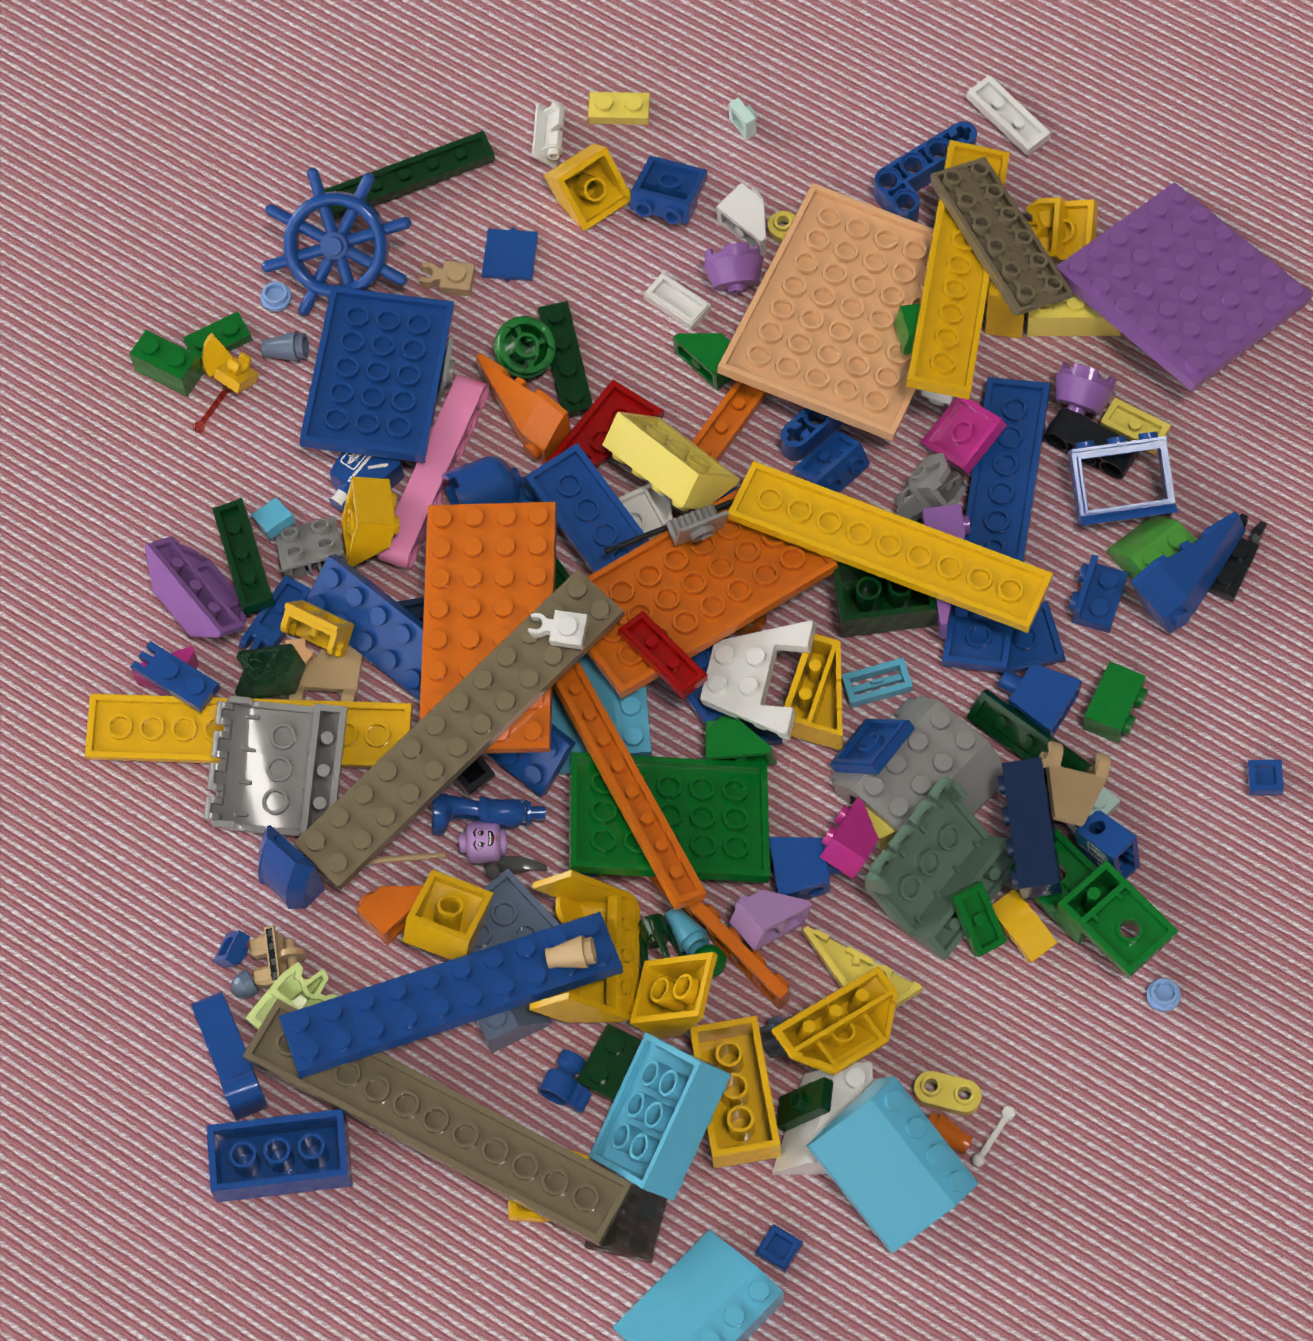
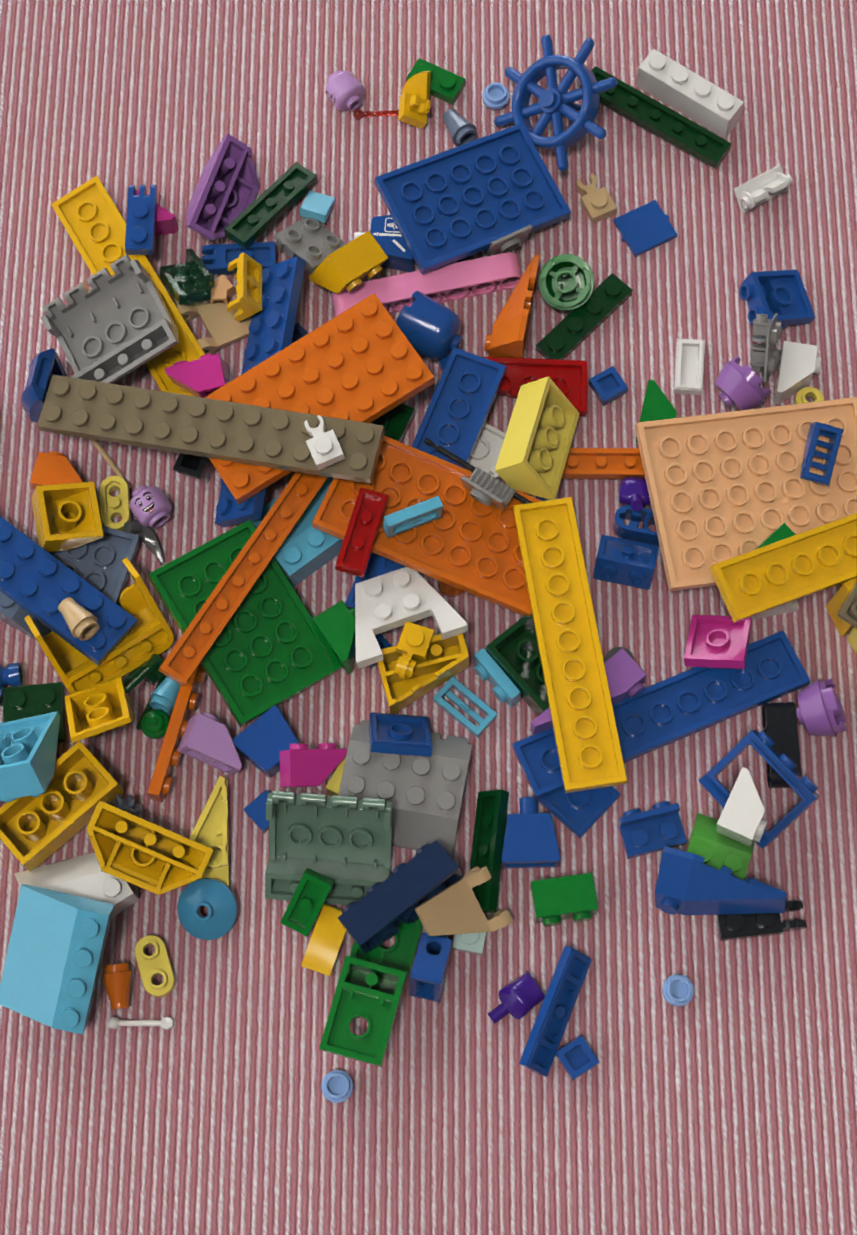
camera: 55 degrees right, 5 degrees up
(166, 363) = (389, 59): green brick -> none
(167, 422) = (344, 90): none -> lavender head
(392, 714) = (201, 375): none -> dark pink slope
(405, 133) = (689, 93): none -> white brick
(458, 867) = (114, 505): none -> light yellow plate
(505, 812) = (174, 496): blue piece -> none
(589, 186) = (738, 243): yellow slope -> none
(619, 108) = (824, 224): light yellow plate -> none
(649, 377) = (608, 385): none -> blue plate
(680, 601) = (412, 516): none -> medium azure tile
(710, 218) = (765, 356): none -> light grey hinge
(773, 415) = (634, 492): none -> dark purple piece
(799, 677) = (413, 642): none -> yellow plate
(804, 1104) = (73, 863): dark green plate -> none
(848, 228) = (812, 441): none -> blue slope
(860, 912) = (257, 811): none -> blue tile
(871, 636) = (503, 687): none -> medium azure plate
(908, 1014) = (218, 900): none -> dark azure dish
(930, 487) = (652, 645): light grey hinge -> none
(1131, 421) = (822, 767): light yellow plate -> none
(1141, 497) = (743, 812): none -> white slope
(1180, 795) = (517, 999): none -> dark purple piece
(1214, 771) = (555, 1011): none -> blue plate
(1256, 660) = (678, 990): none -> light blue plate

